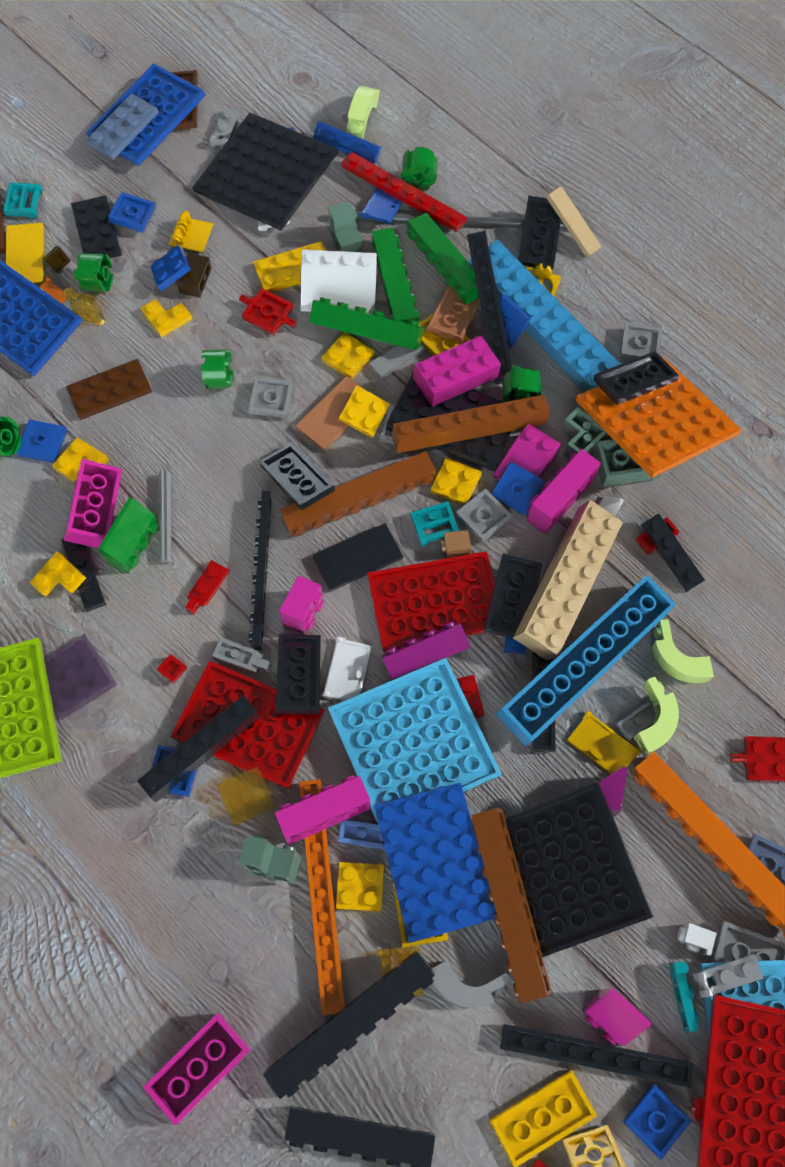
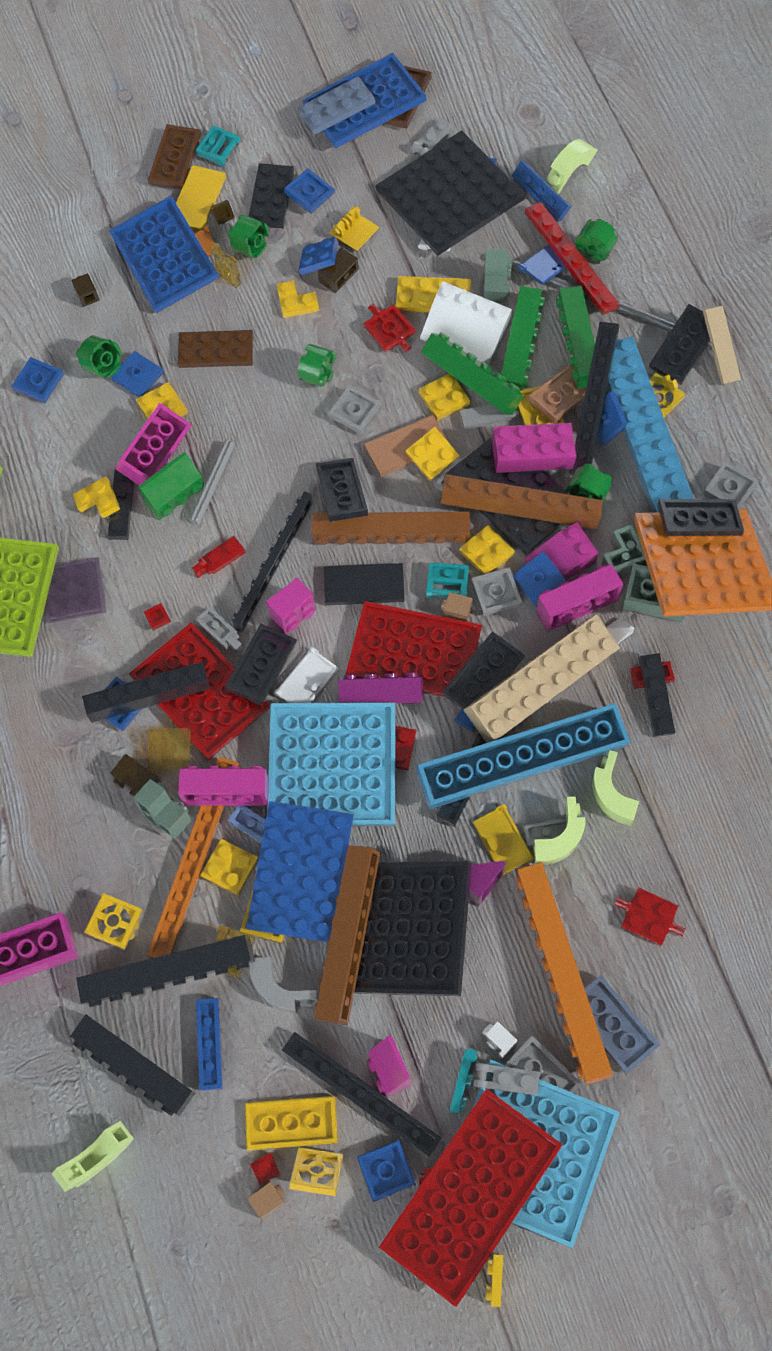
camera: 30 degrees right, 0 degrees up
(224, 839) = (132, 775): none -> dark brown brick
(255, 979) = (99, 914): none -> yellow piece
(426, 1077) = (209, 1044): none -> blue plate

